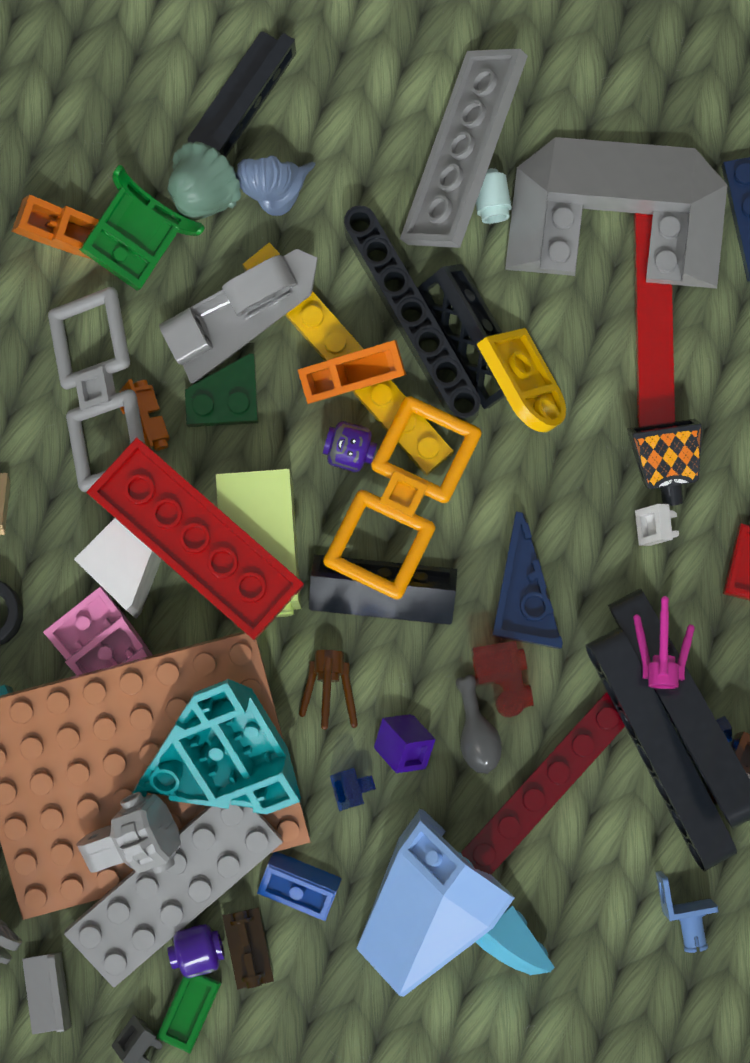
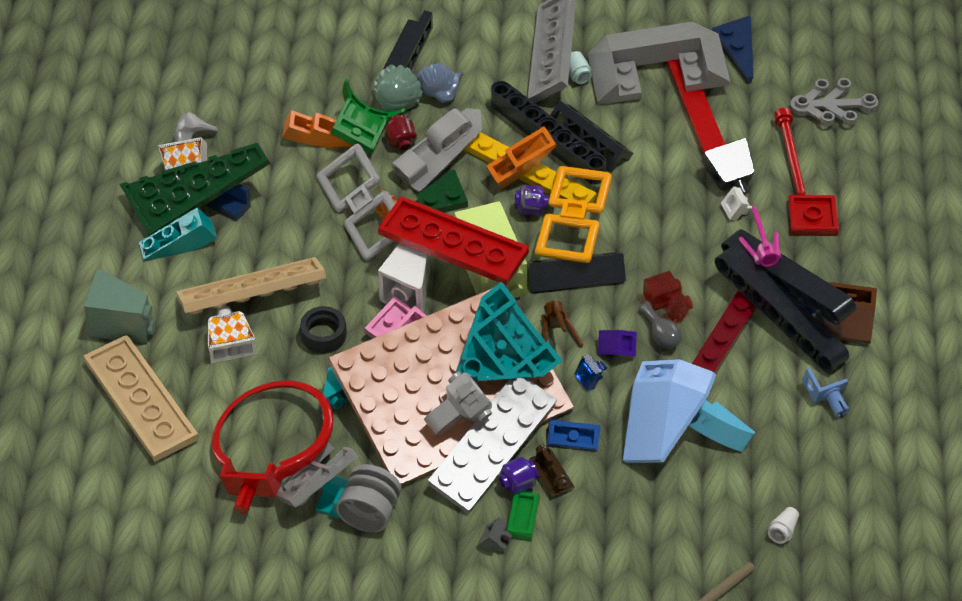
camera: 15 degrees left, 30 degrees down
(47, 993) = (425, 523): light grey panel -> none
(190, 264) = (400, 132): none -> dark red head
(523, 603) = (667, 254): dark blue wing -> none
(524, 379) = (628, 144): yellow tile -> none

